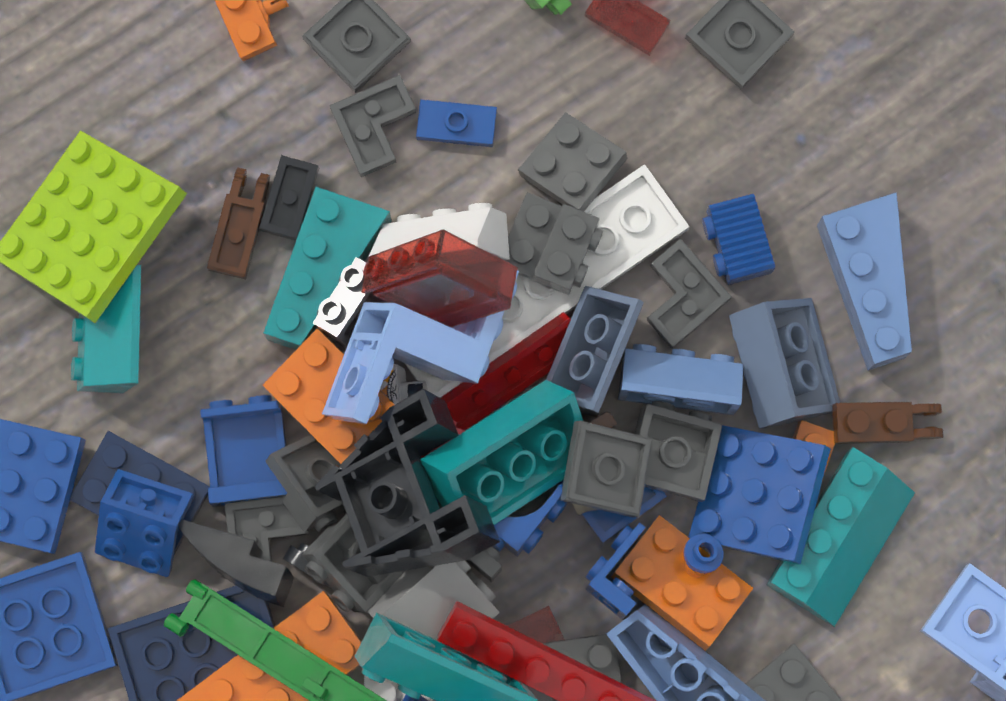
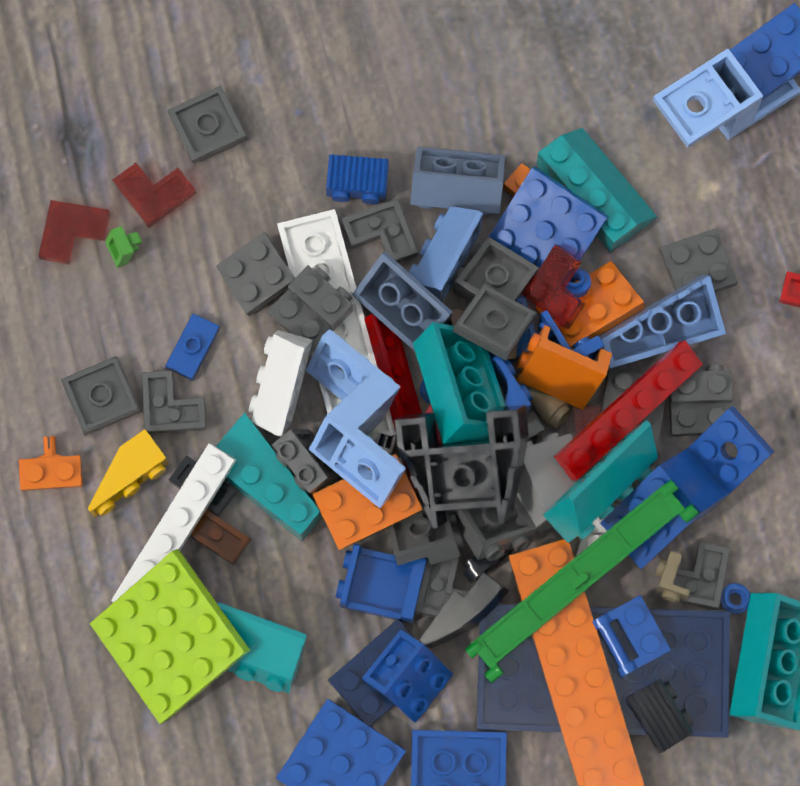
camera: 70 degrees left, 5 degrees down
(239, 185) = (182, 513): none -> white plate
(279, 104) = (131, 466): none -> yellow slope
(441, 278) = (316, 382): clear red window -> none
(536, 577) = (551, 409): none -> dark tan cone
(578, 573) = (561, 371): none -> orange panel
(682, 522) = (548, 287): none -> clear red plate
(869, 272) = (420, 99): medium blue wedge -> none
(882, 422) = (525, 130): reddish brown hinge -> none

